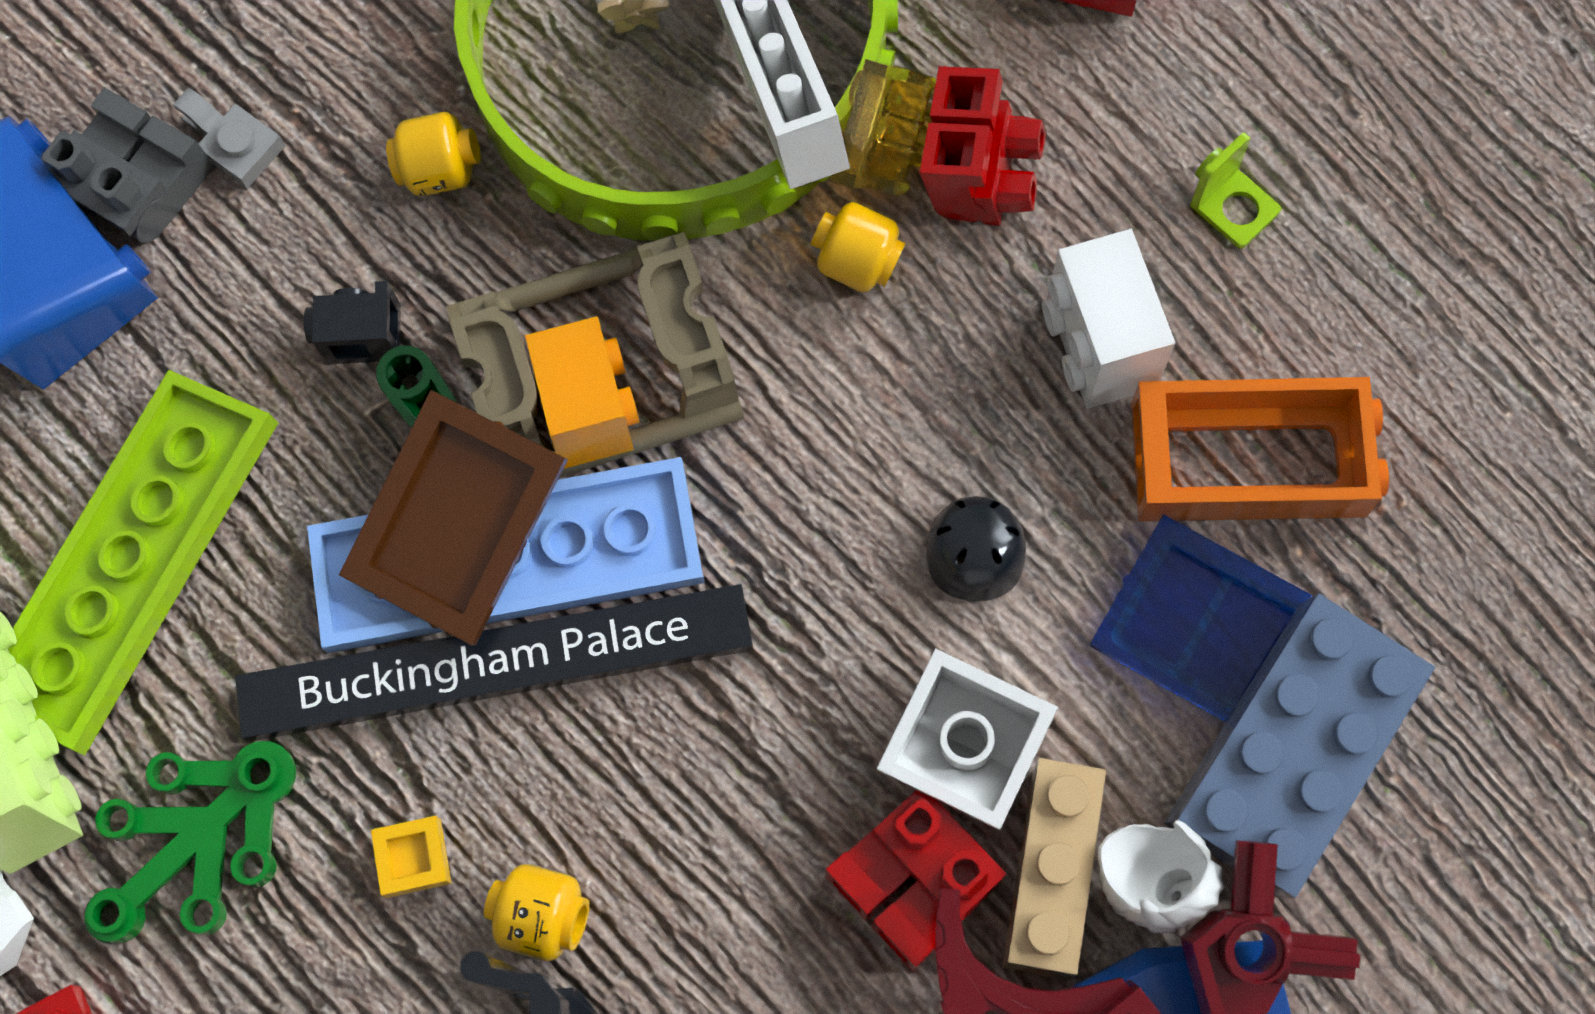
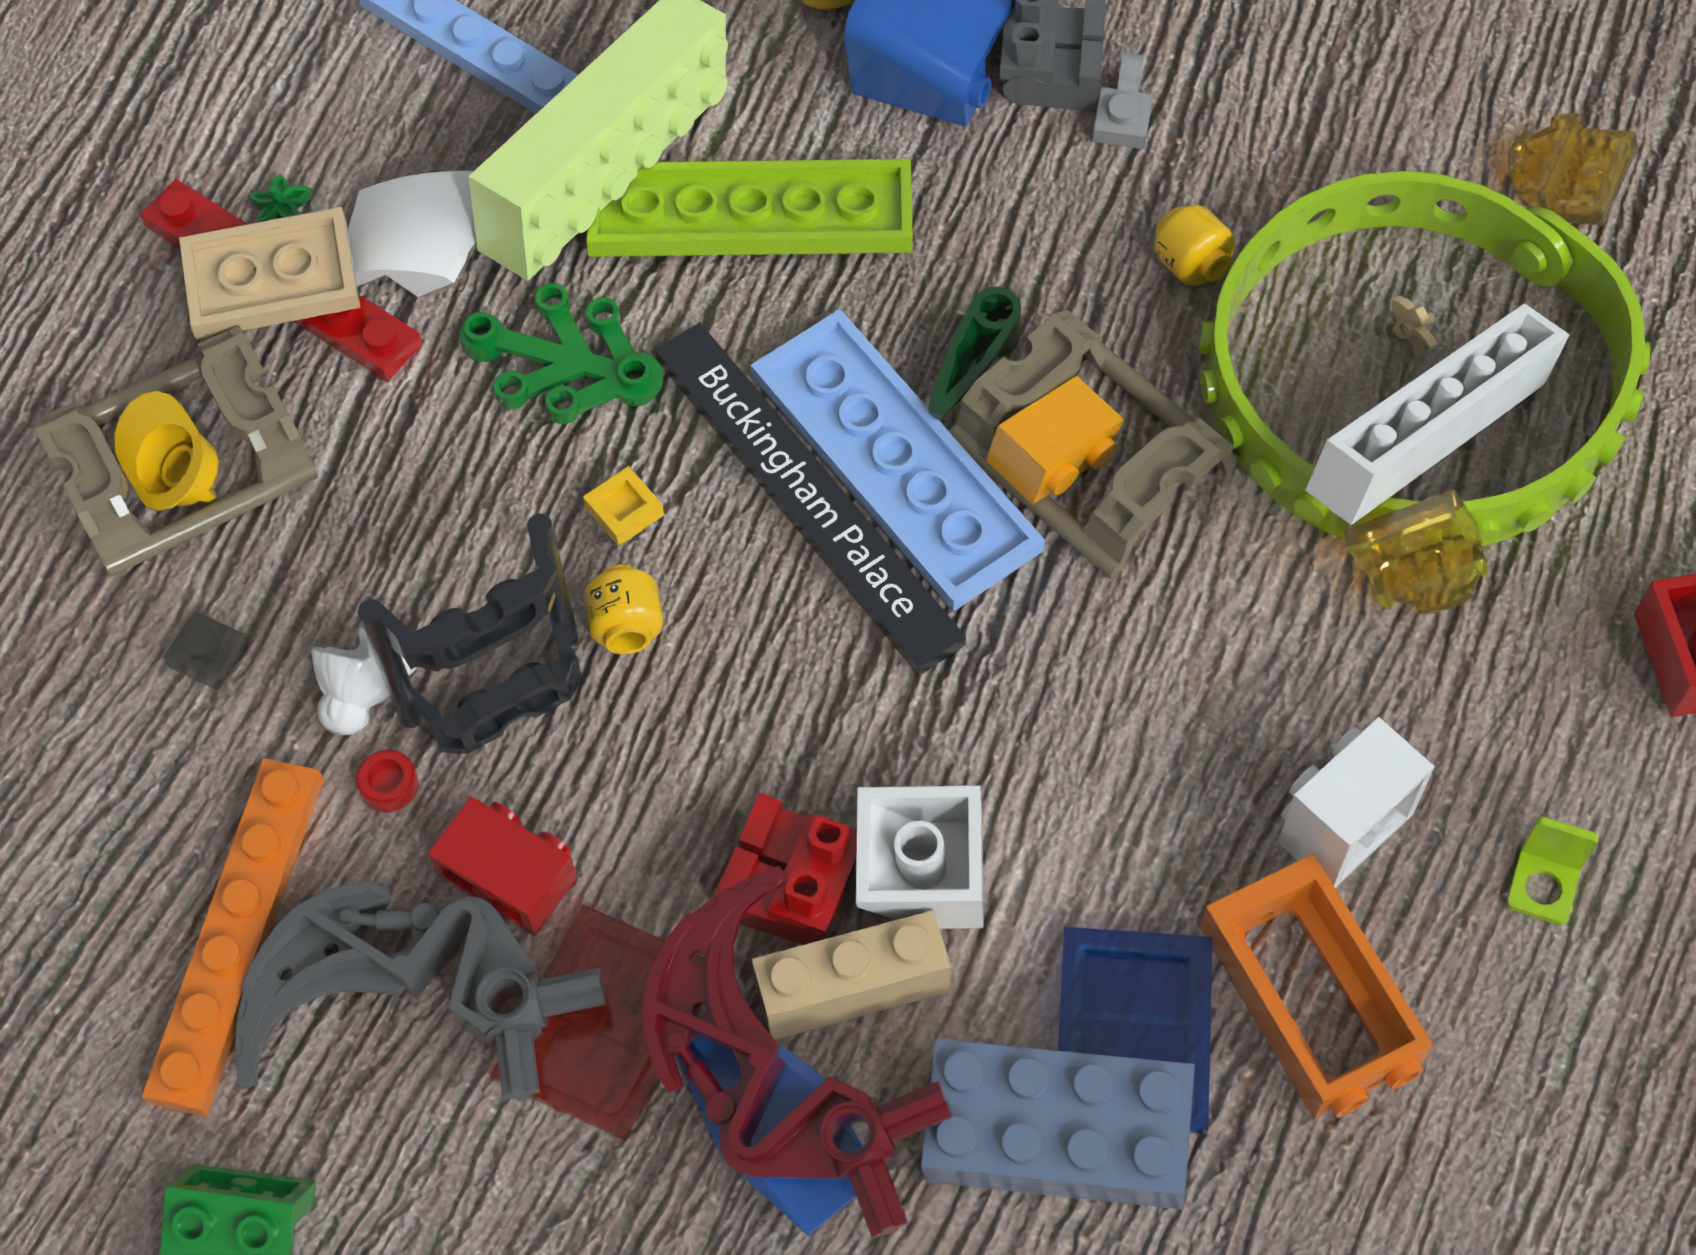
camera: 60 degrees right, 10 degrees down
(354, 324) = (1022, 262): black brick -> none
(453, 517) = (897, 394): reddish brown piece -> none
(857, 247) = (1306, 588): yellow head -> none
(973, 147) = (1450, 635): red hips -> none
(977, 532) = (1106, 790): black helmet -> none
(1151, 868) = (882, 1044): white piece -> none

